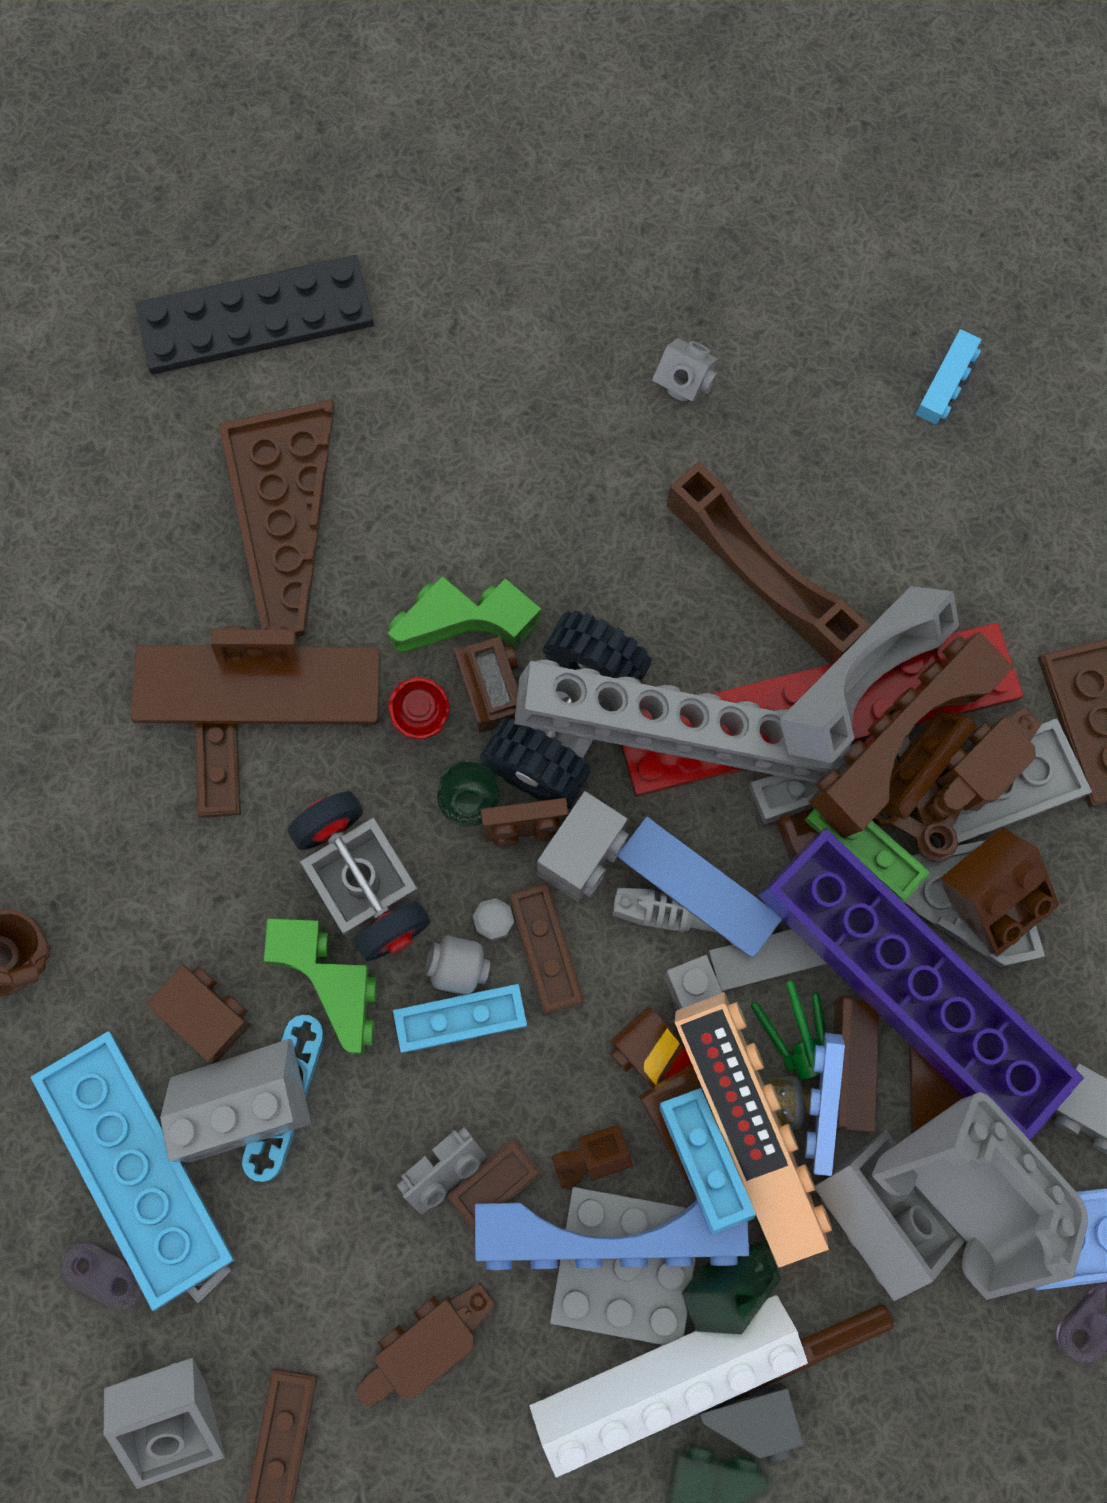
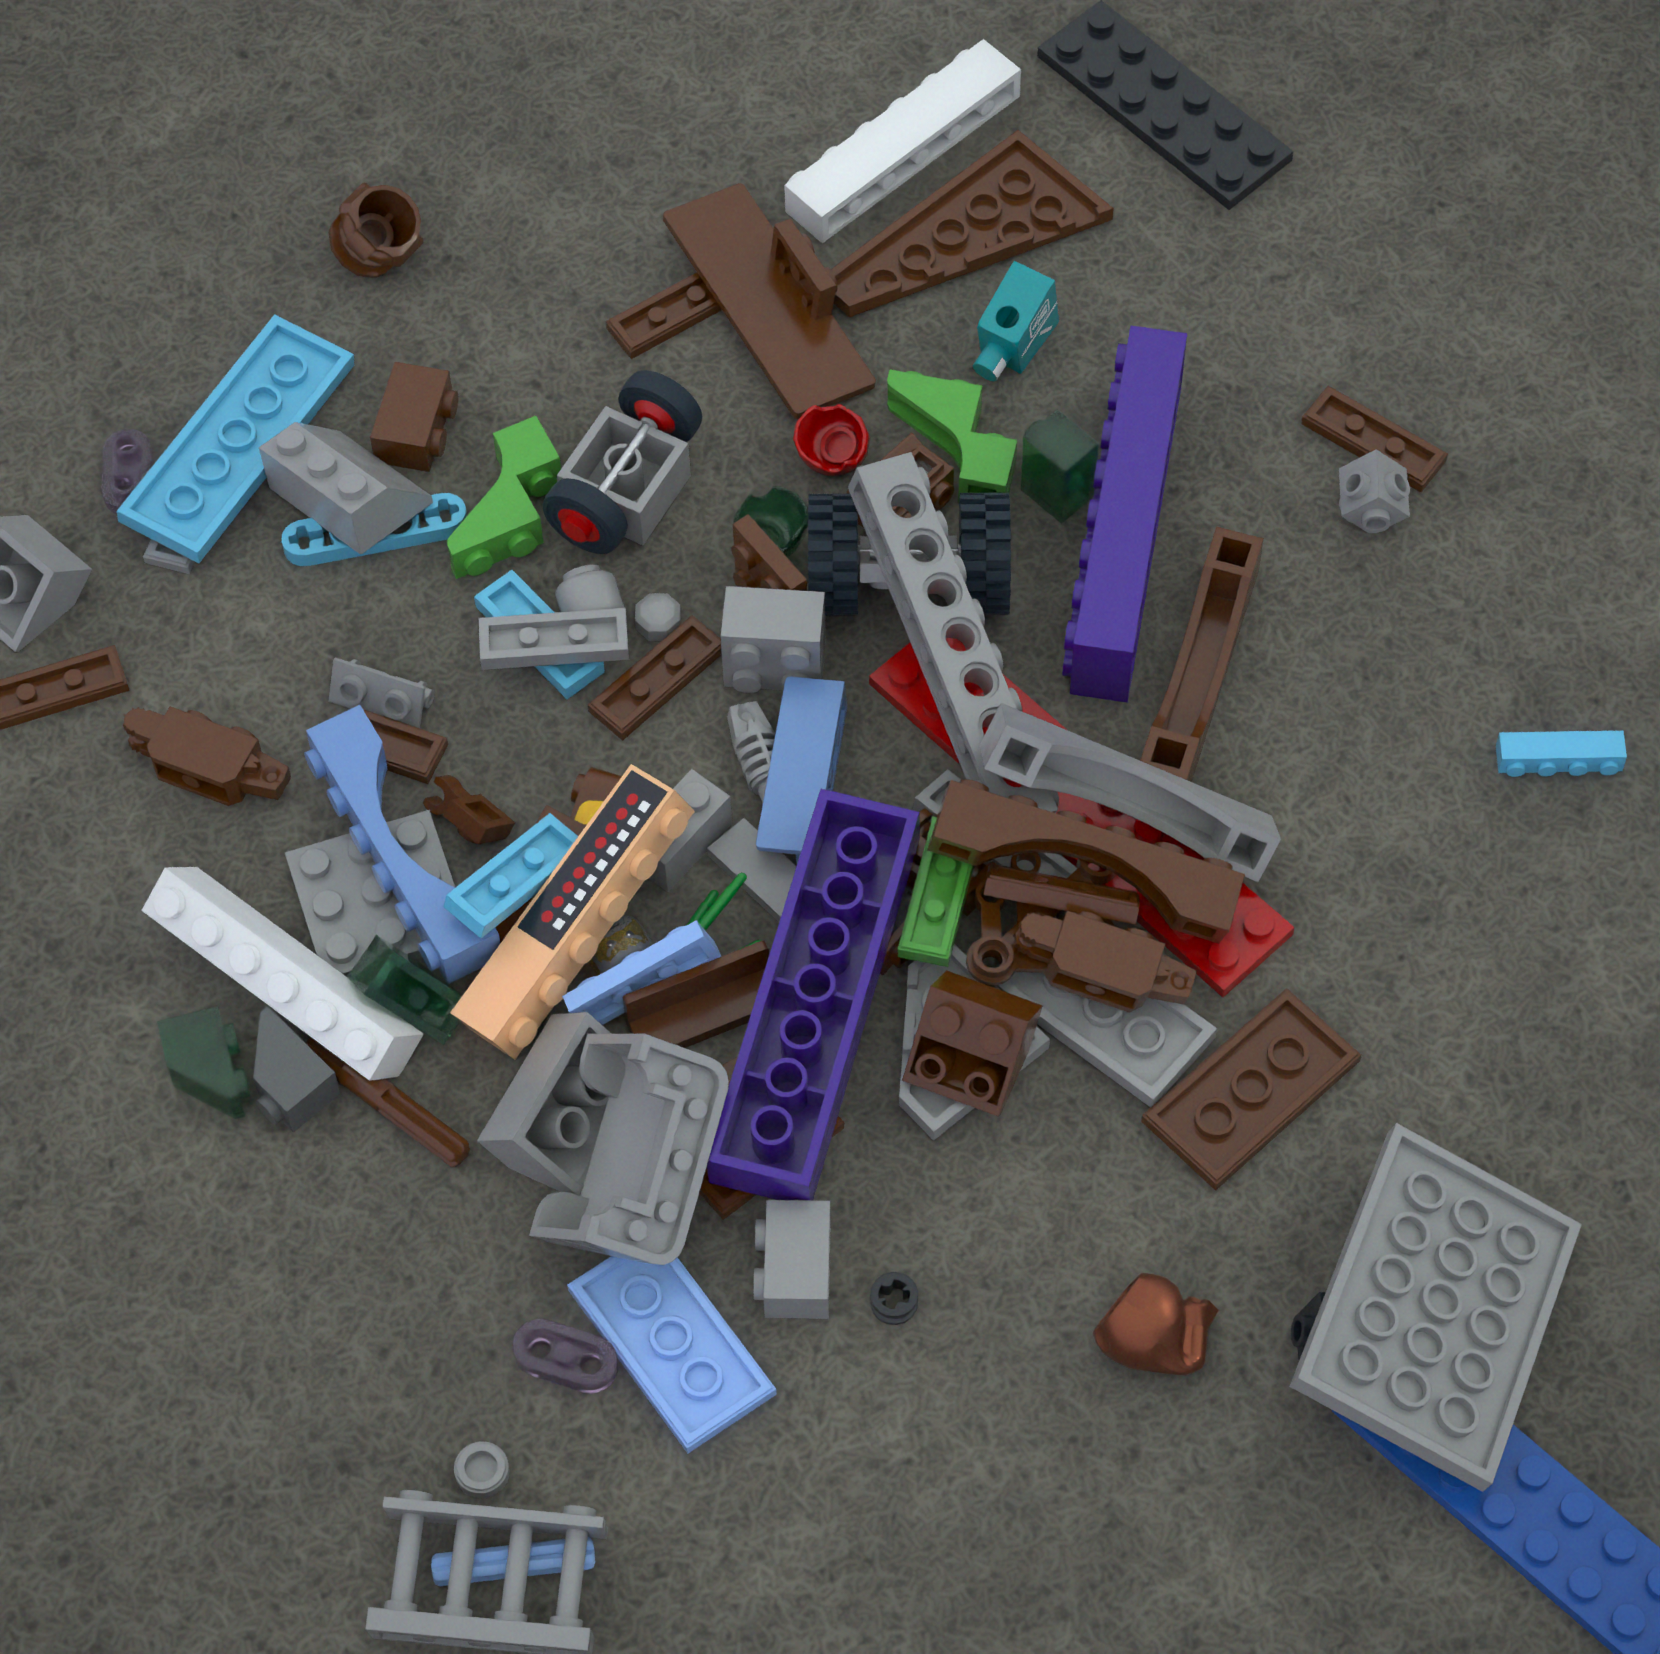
camera: 65 degrees right, 15 degrees down
(172, 510) = (902, 140): none -> white brick
(393, 509) = (1016, 321): none -> teal torso
(485, 1013) = (553, 638): none -> light grey plate
(545, 562) = (1058, 465): none -> clear green brick
(614, 538) = (1124, 514): none -> dark purple brick
(627, 345) = (1364, 431): none -> reddish brown tile

